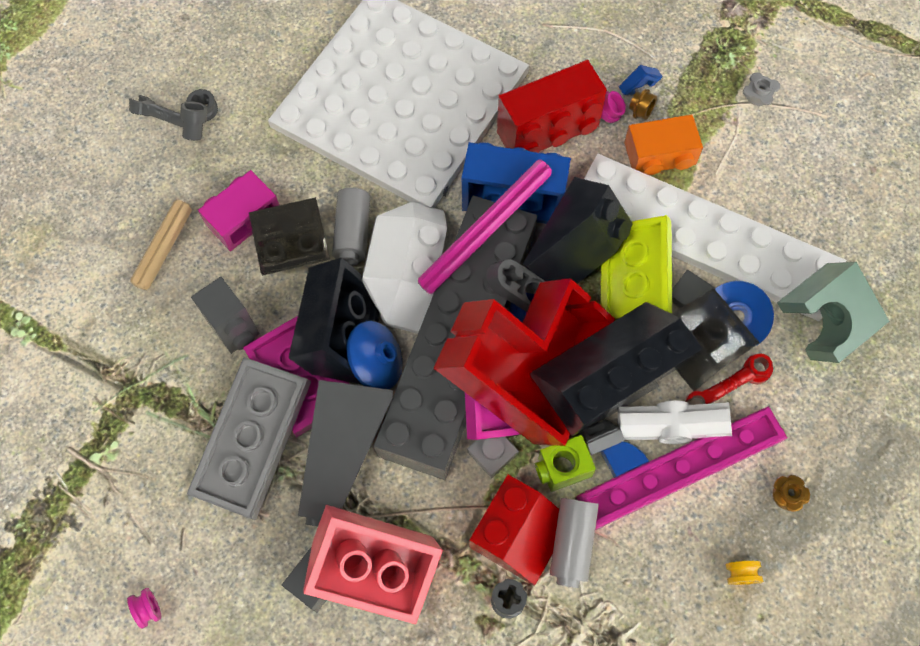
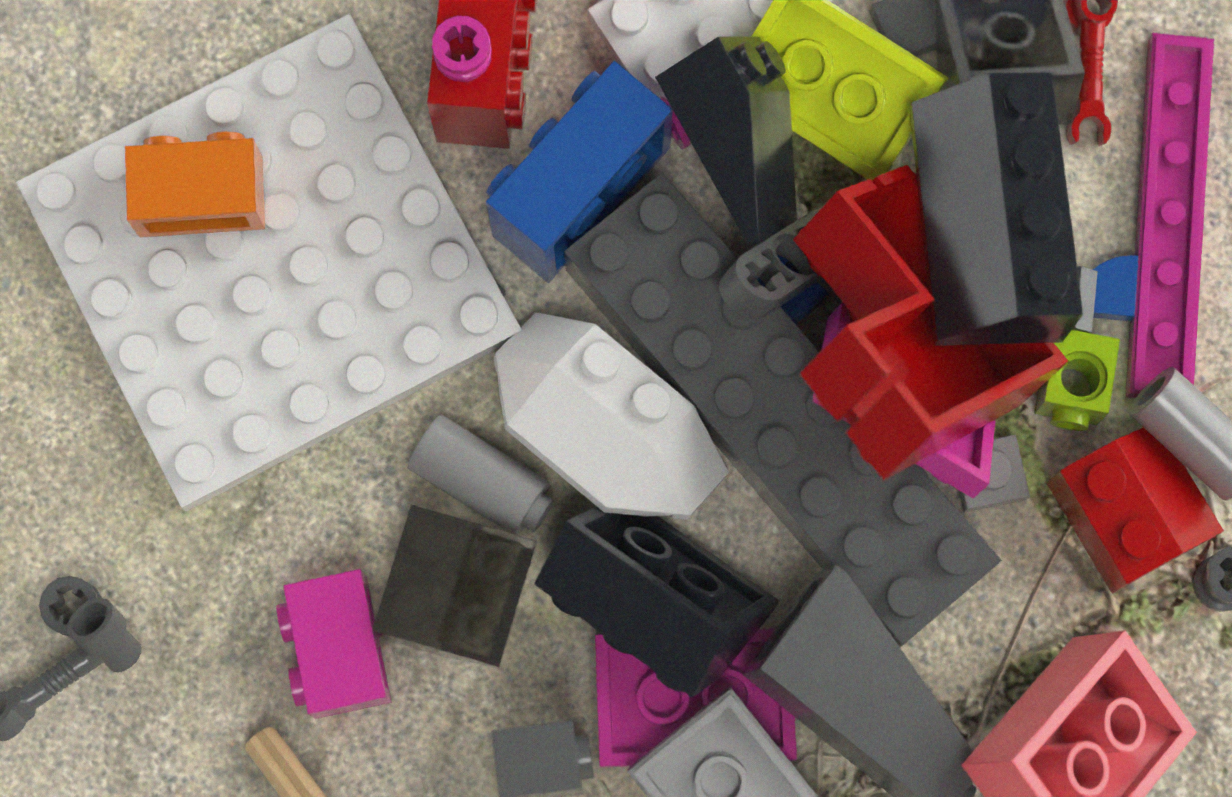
camera: 60 degrees left, 10 degrees up
(374, 355) = (743, 563): blue dish -> none
(408, 41) = (194, 185): none -> orange piece
(484, 227) = (654, 265): dark pink axle -> none
(531, 82) = (459, 27): none -> dark pink bush
(675, 421) = (1113, 169): white piece -> none

